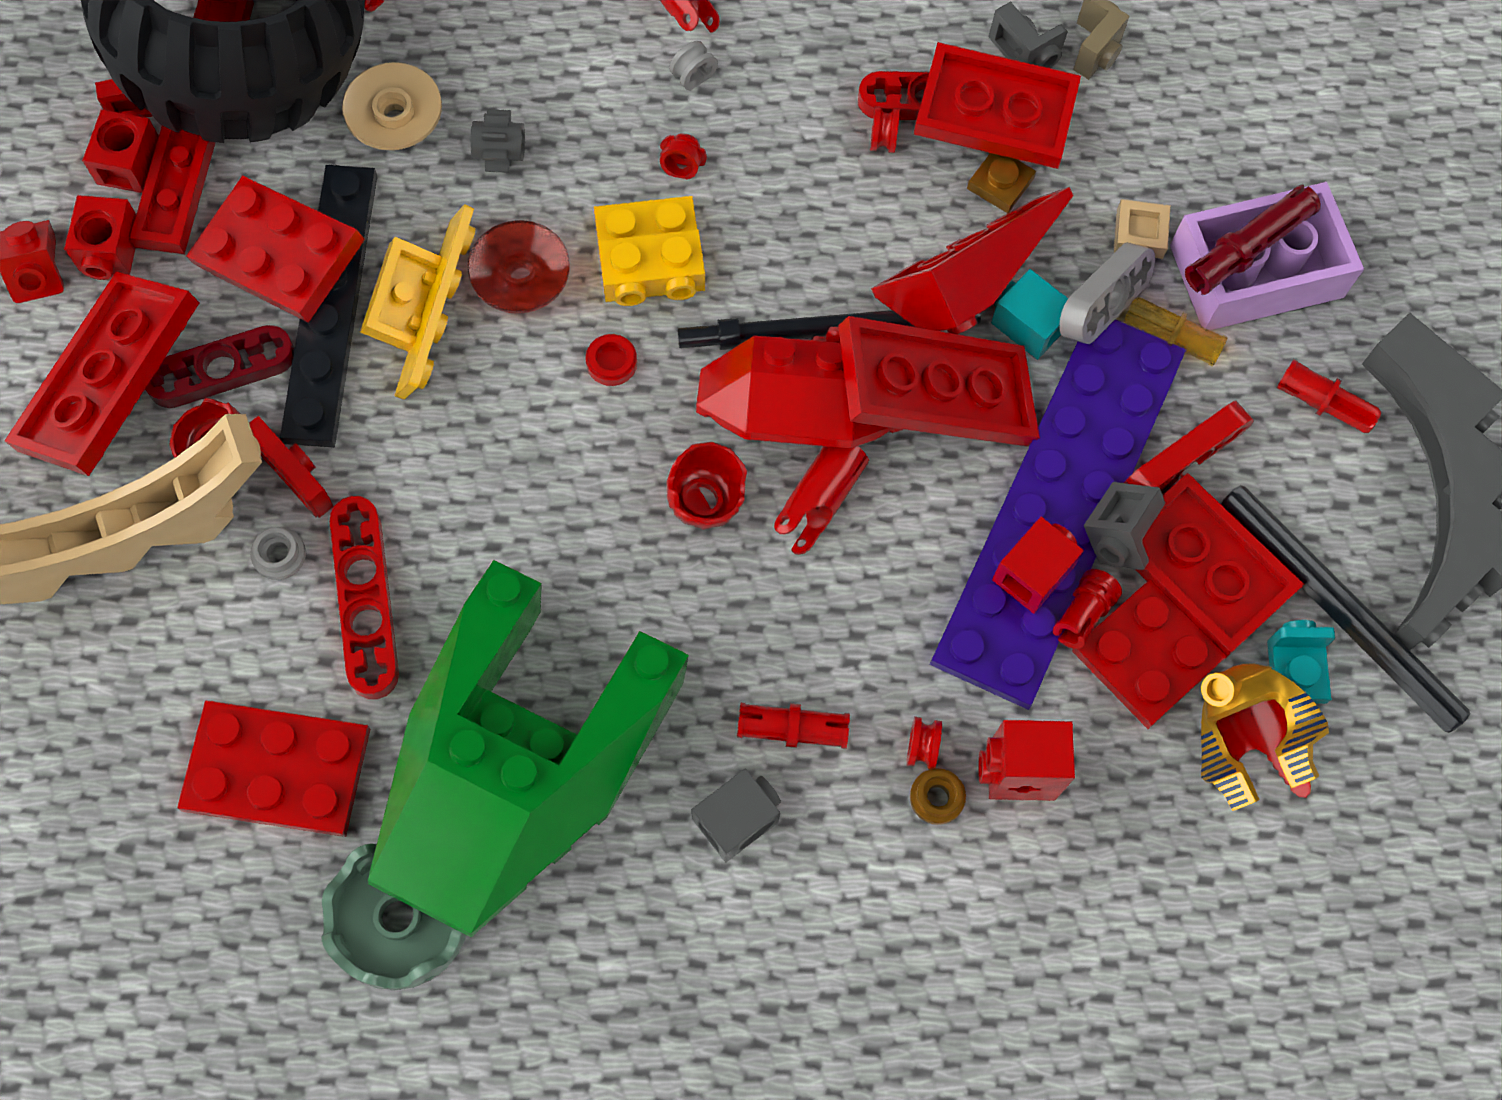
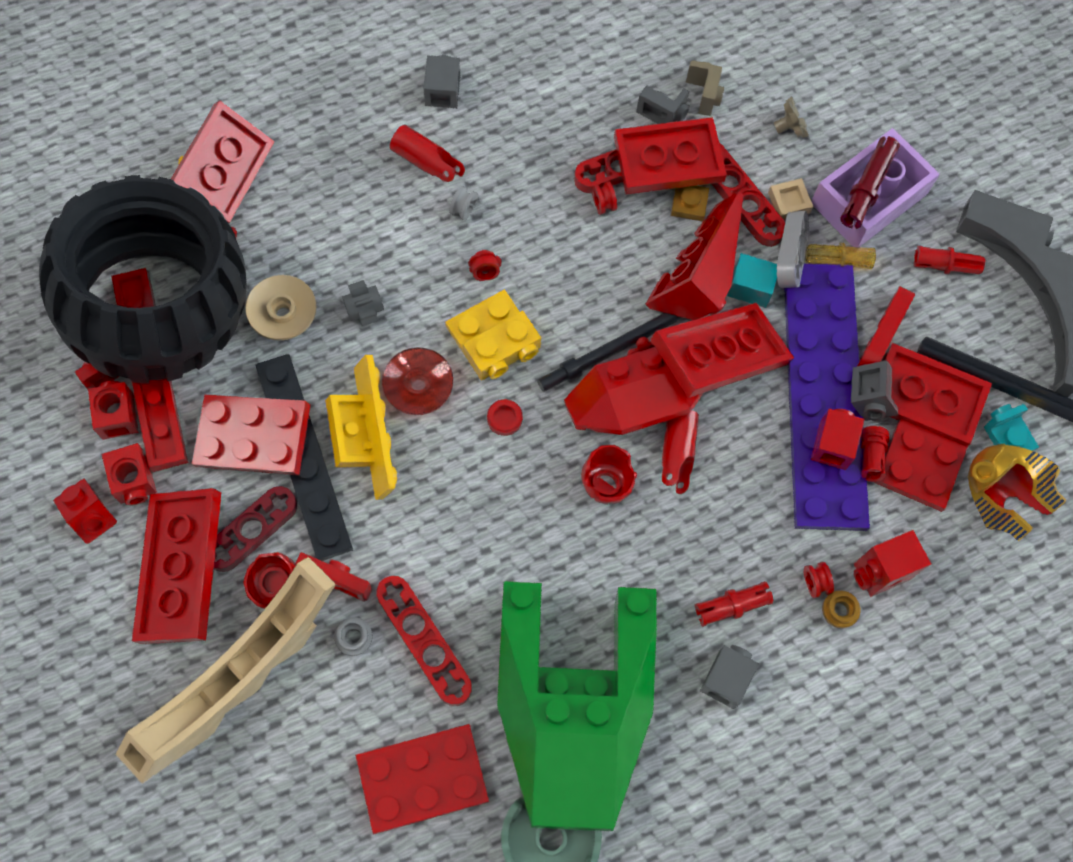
camera: 25 degrees left, 0 degrees up
(1086, 195) = (751, 192): none -> red beam
(1198, 124) = (792, 120): none -> dark tan plant

